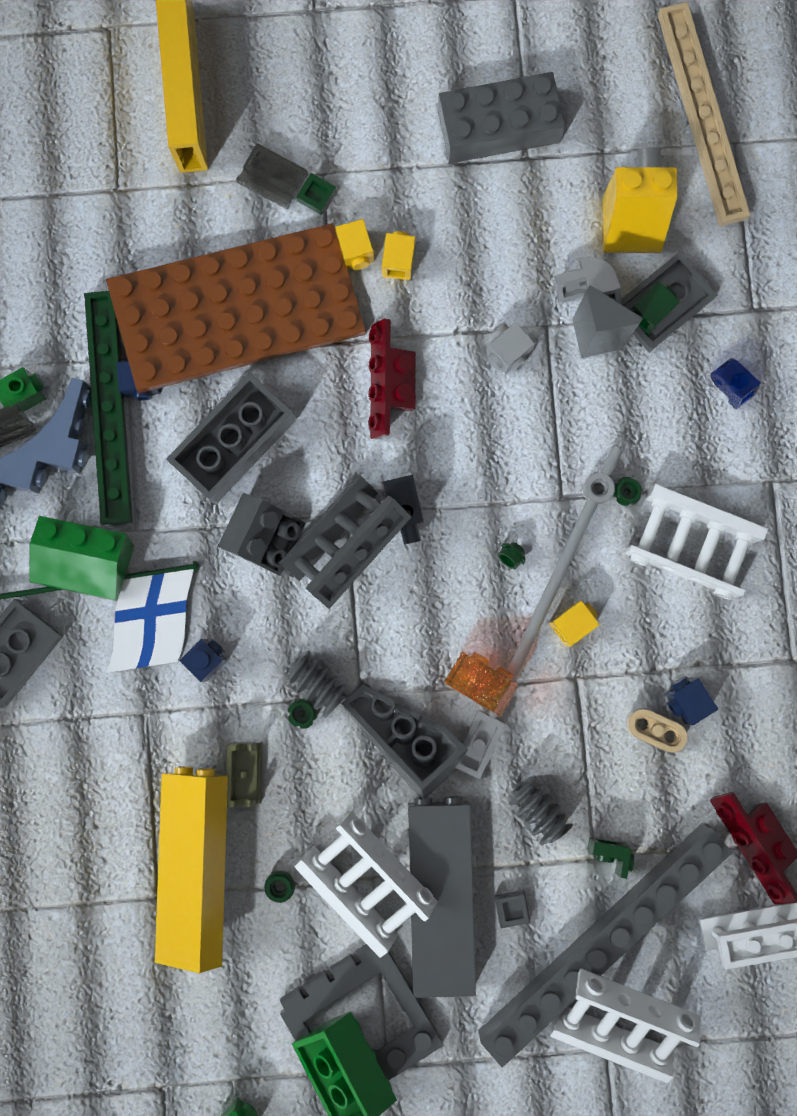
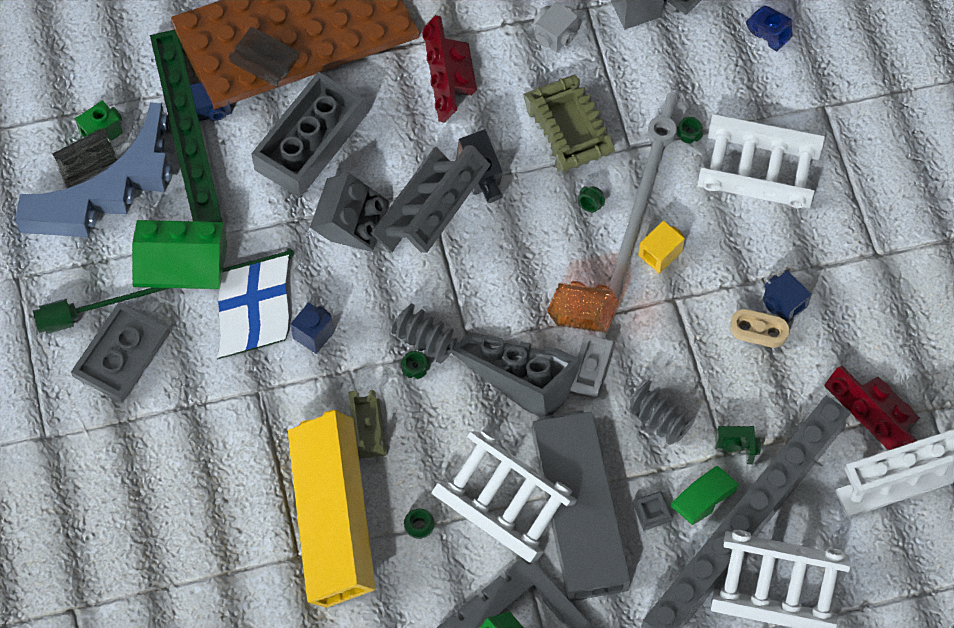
camera: 10 degrees left, 20 degrees down
(194, 346) = (264, 56): none -> clear smoke plate
(505, 465) = (570, 122): none -> olive piece
(567, 906) = (703, 494): none -> green slope

